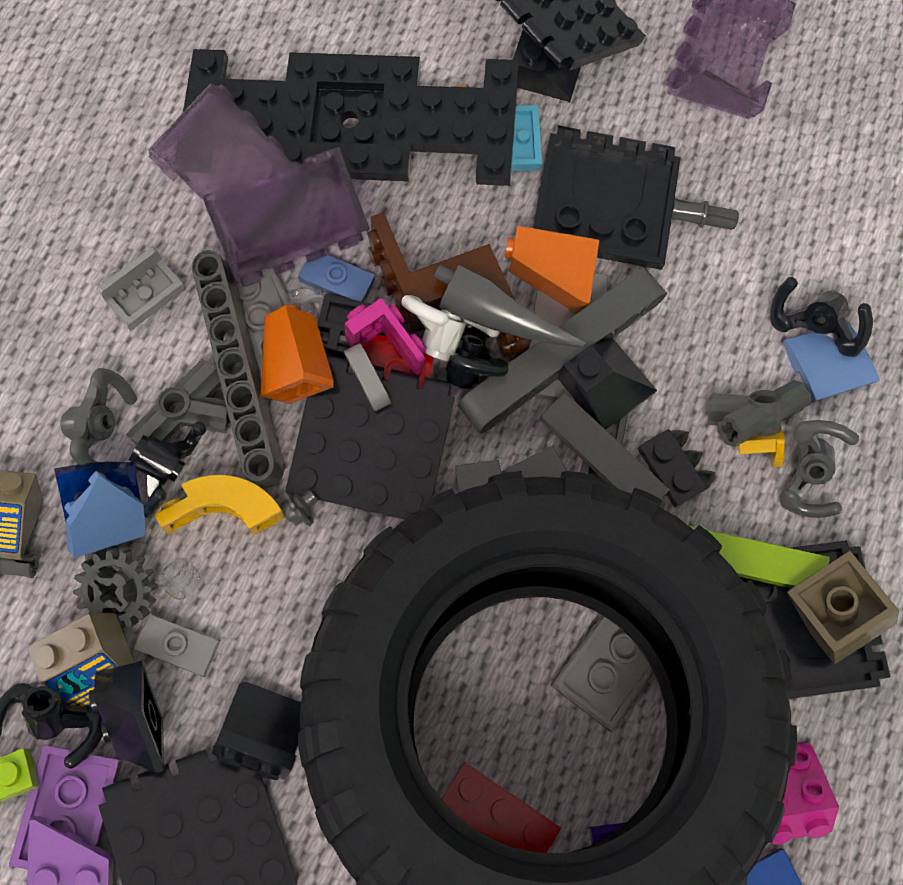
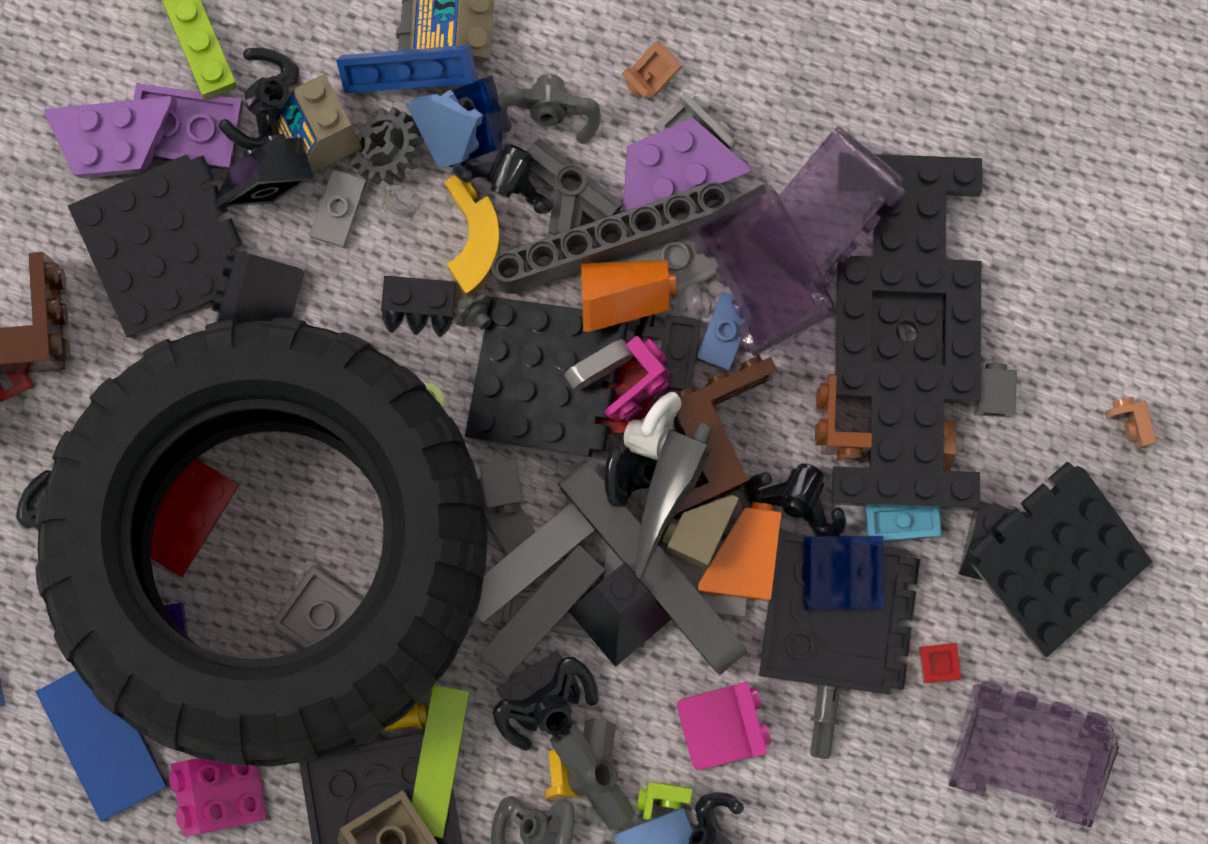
camera: 95 degrees right, 10 degrees up
(34, 559) = (407, 69): none -> blue plate
(71, 324) = (652, 71): none -> nougat bracket
(169, 305) = (677, 162): none -> medium lavender wing
(282, 567) = (418, 301): none -> black plate
(411, 44) = (997, 391): none -> dark grey brick
(431, 183) = (846, 445): none -> dark orange bracket
(500, 218) = (798, 498): none -> black piece
(537, 286) = (699, 532): none -> dark tan slope
(537, 442) = (532, 559): none -> light grey tile
(571, 183) = (844, 572): none -> clear blue slope
(651, 117) = (940, 663): none -> red plate
(697, 451) = (547, 705): none -> black piece
(709, 296) = (723, 726): none -> dark pink bracket
(774, 355) = (670, 795): none -> lime bracket

